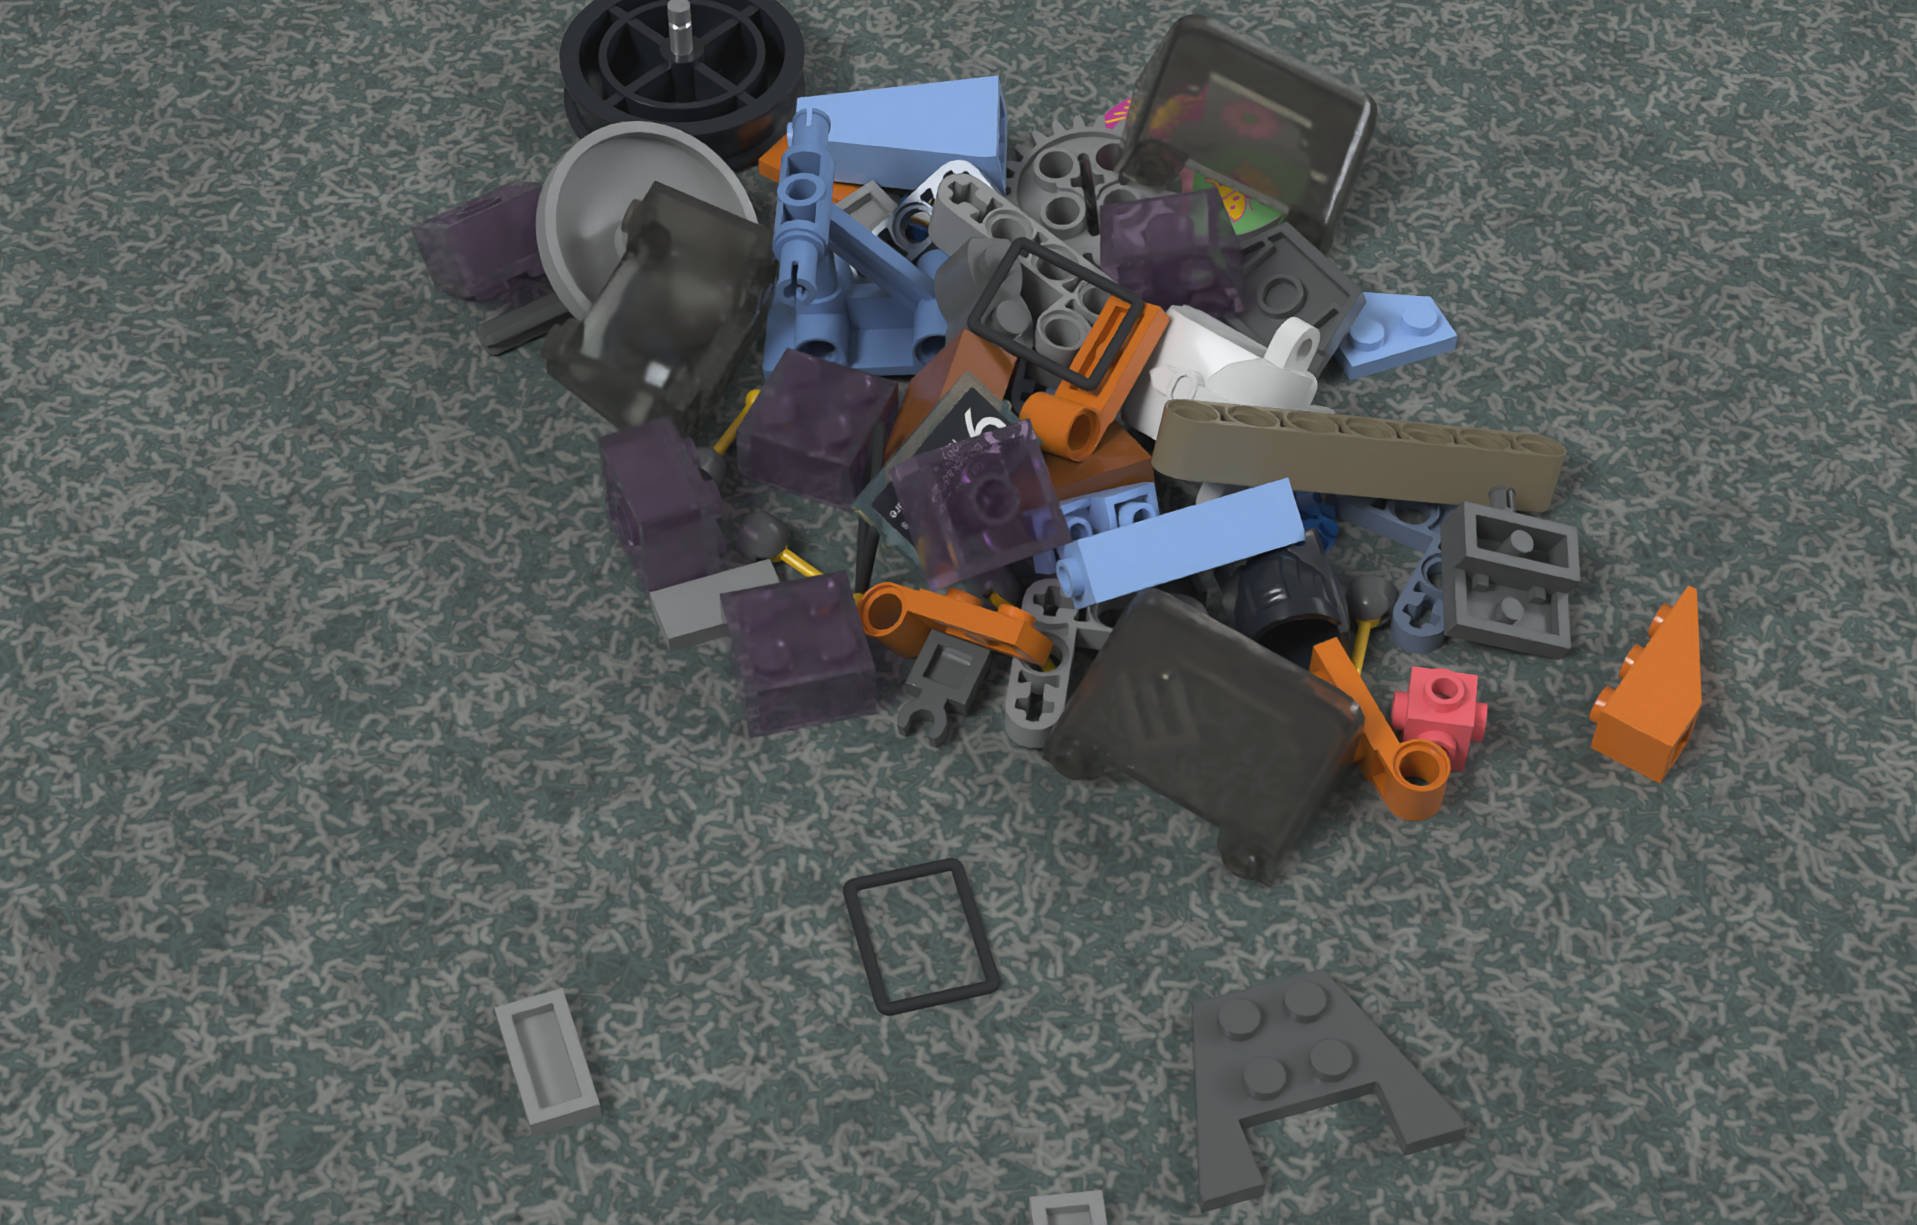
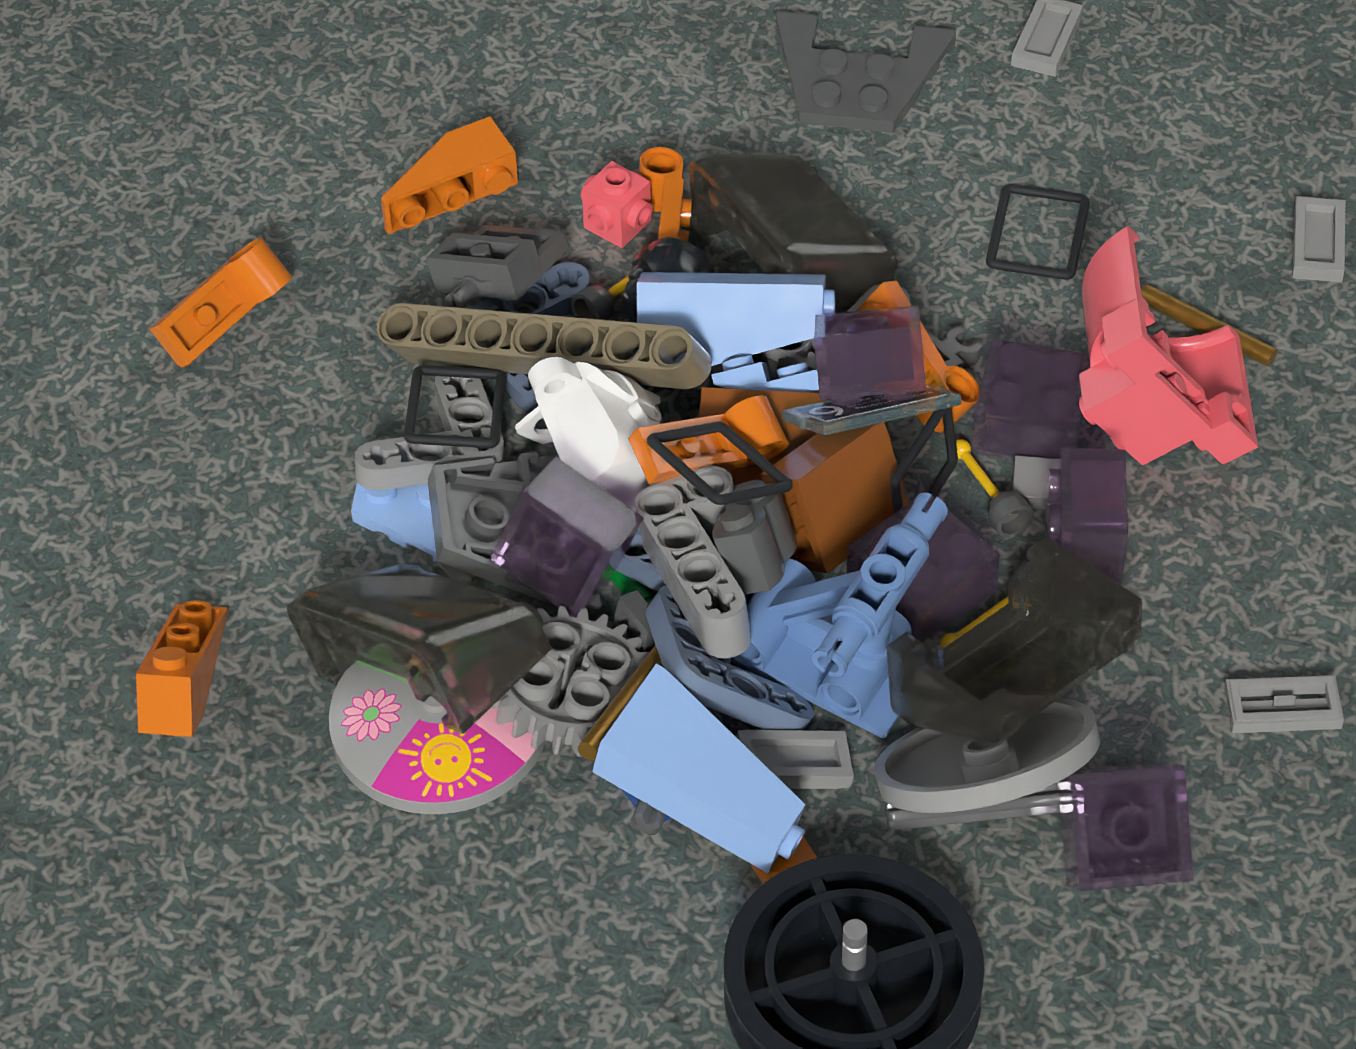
camera: 150 degrees left, 0 degrees up
(391, 469) = (1284, 712): none -> light grey tile
(644, 874) = (1205, 323): none -> pearl gold bar
(699, 695) = (1157, 388): none -> coral piece
(1016, 152) = (589, 745): none -> pearl gold bar
(1379, 369) = (396, 463): none -> light grey beam
(1391, 341) = (459, 441): none -> black piece
(1453, 108) = (179, 670): none -> orange slope
(1759, 439) = (220, 301): none -> orange plate

